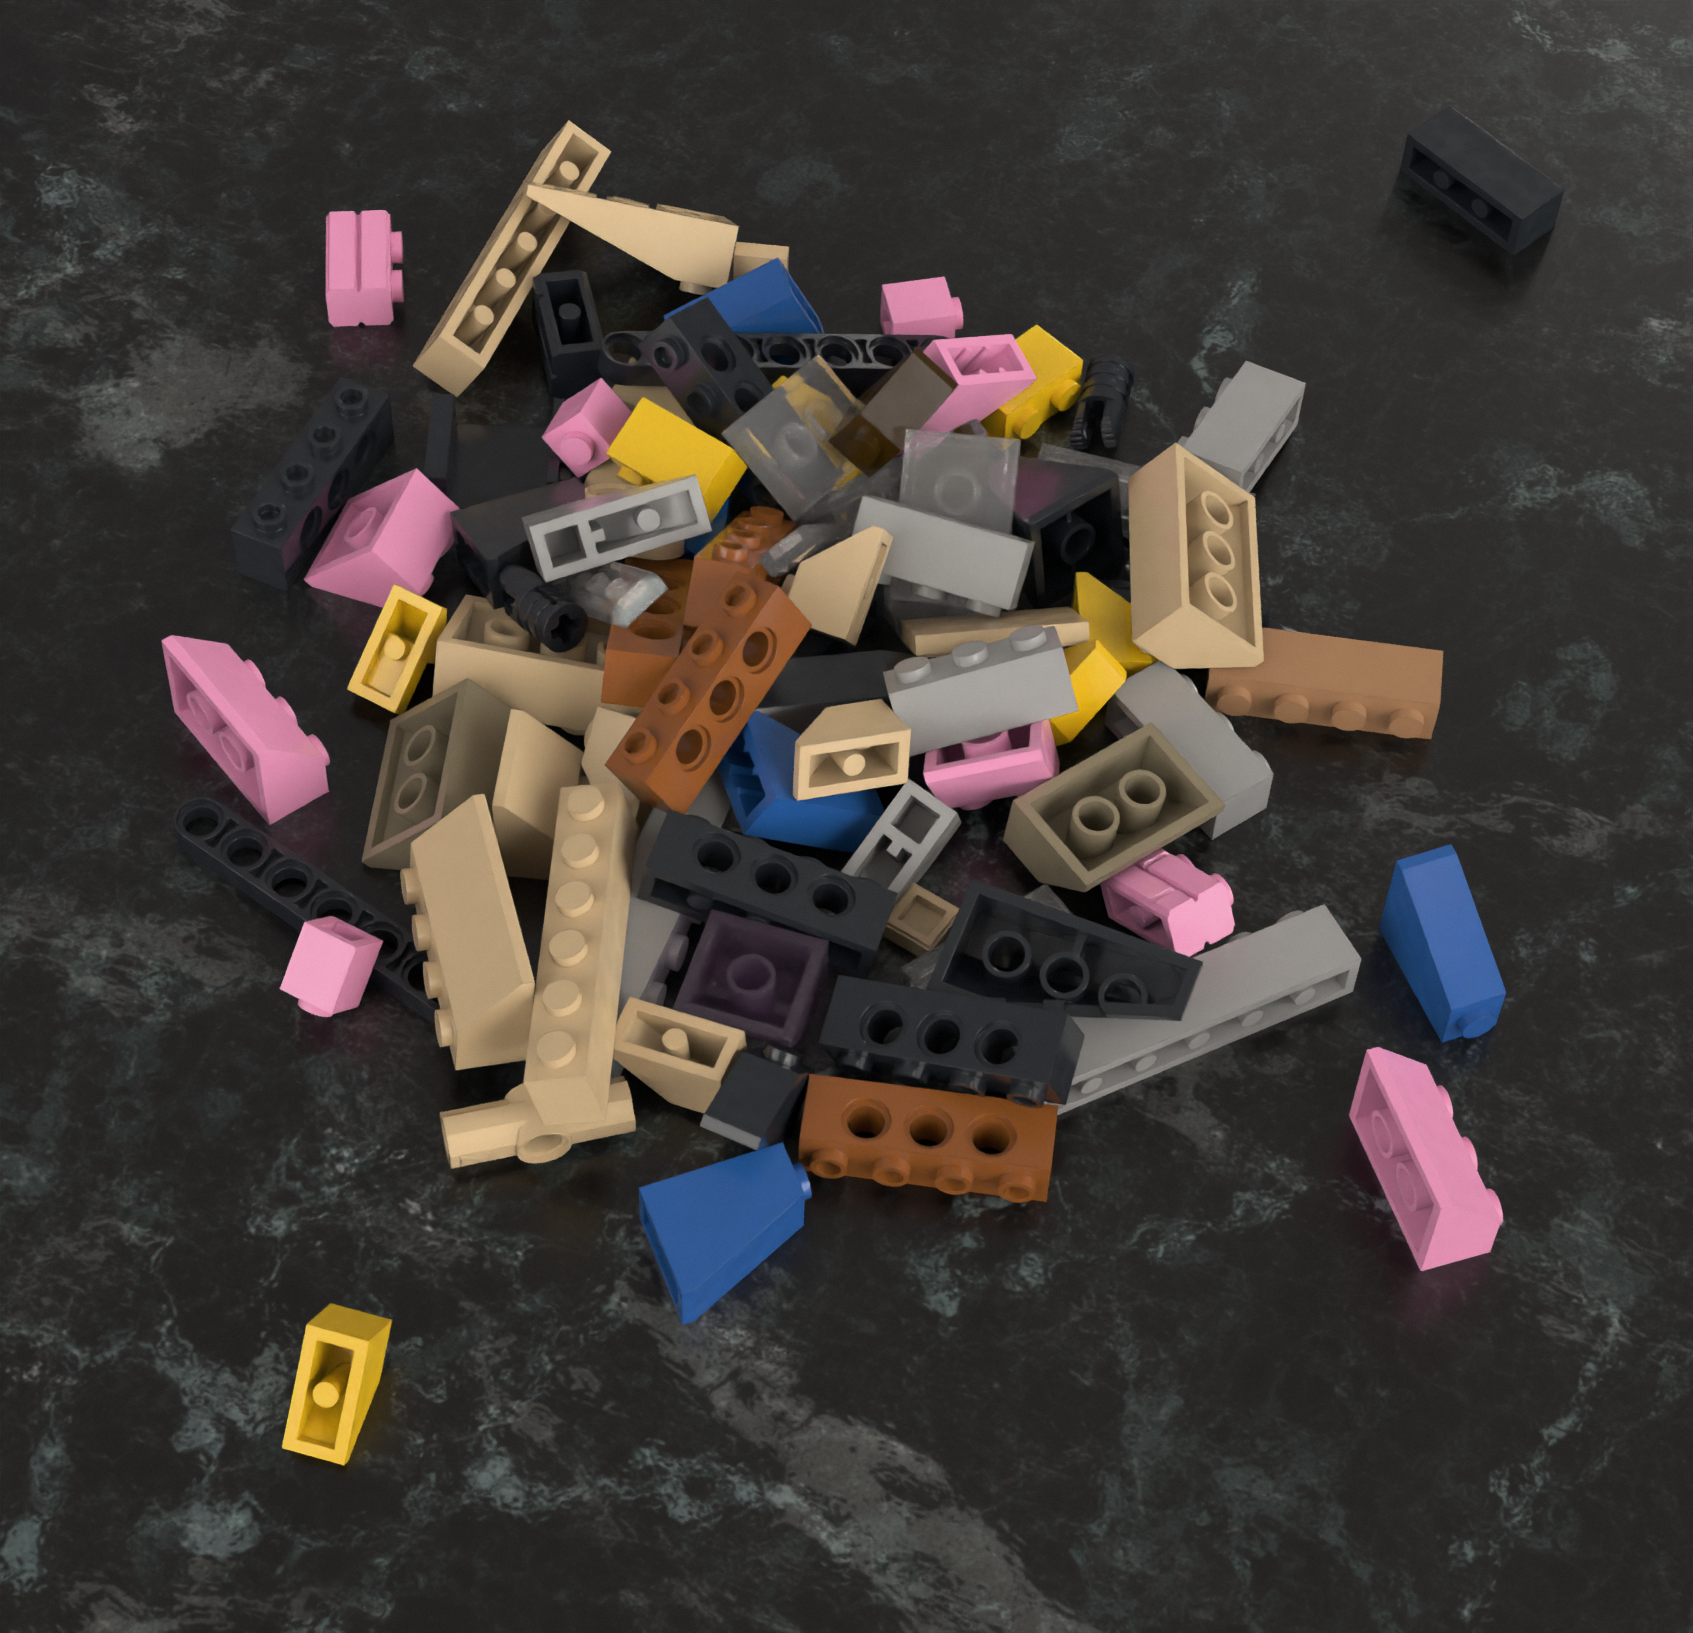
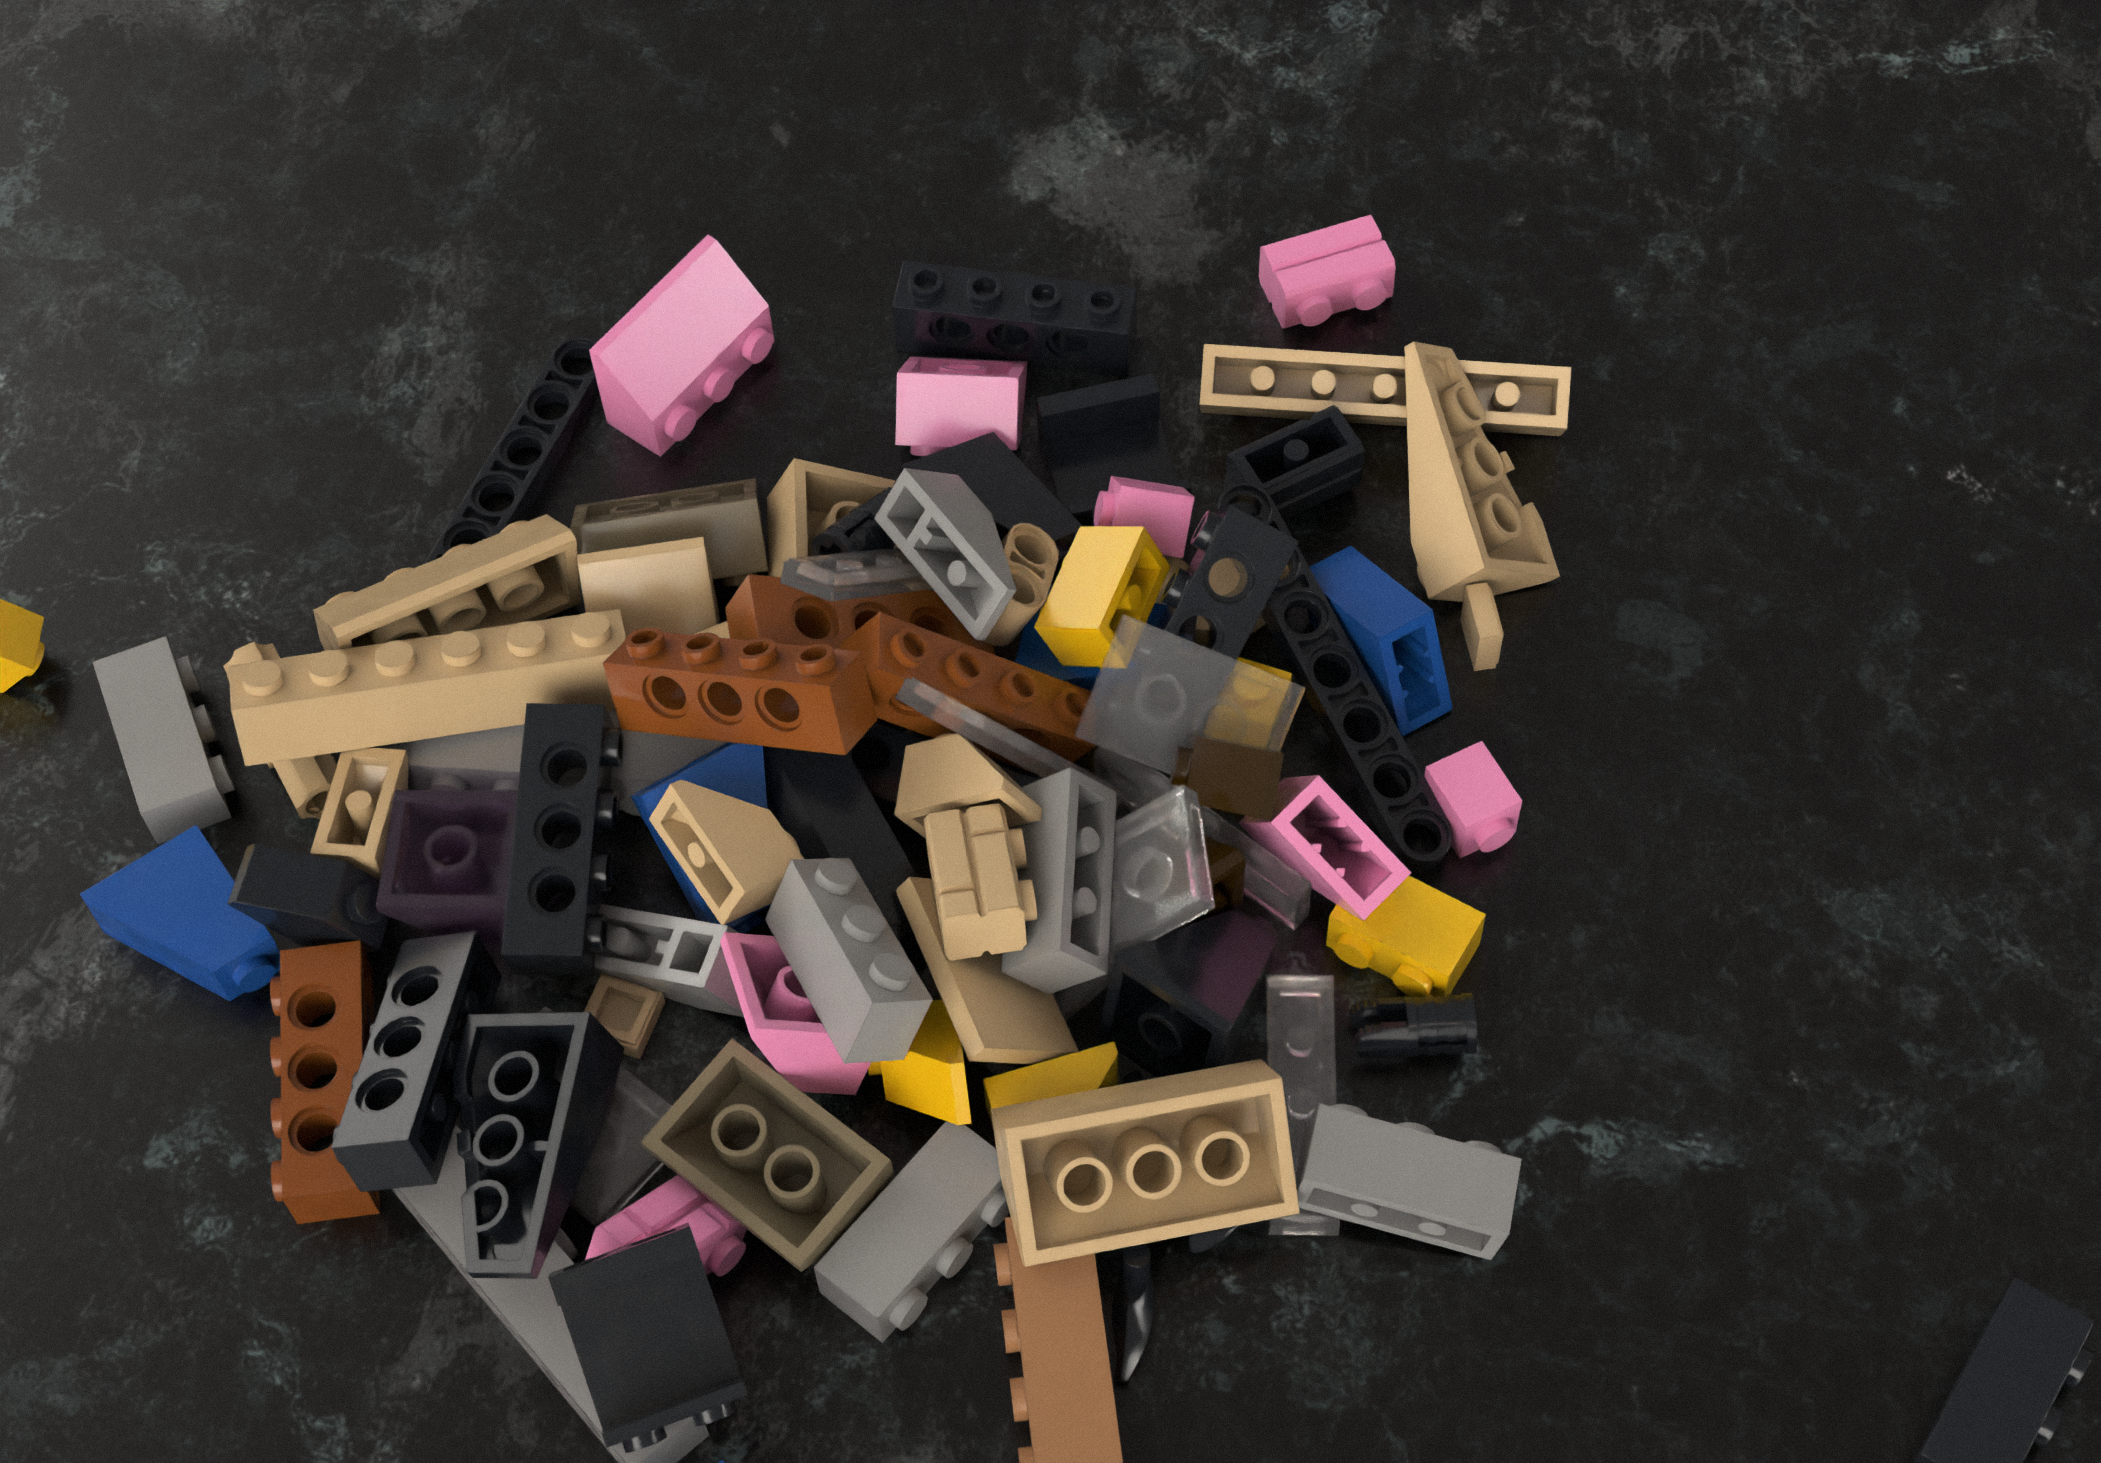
camera: 80 degrees right, 5 degrees up
(330, 966) = (417, 505): bright pink brick -> none
(398, 650) = (825, 439): yellow slope -> none
(510, 1224) = (165, 738): none -> light grey brick
(941, 586) = (977, 881): none -> tan brick
(1276, 902) = (649, 1338): none -> black panel

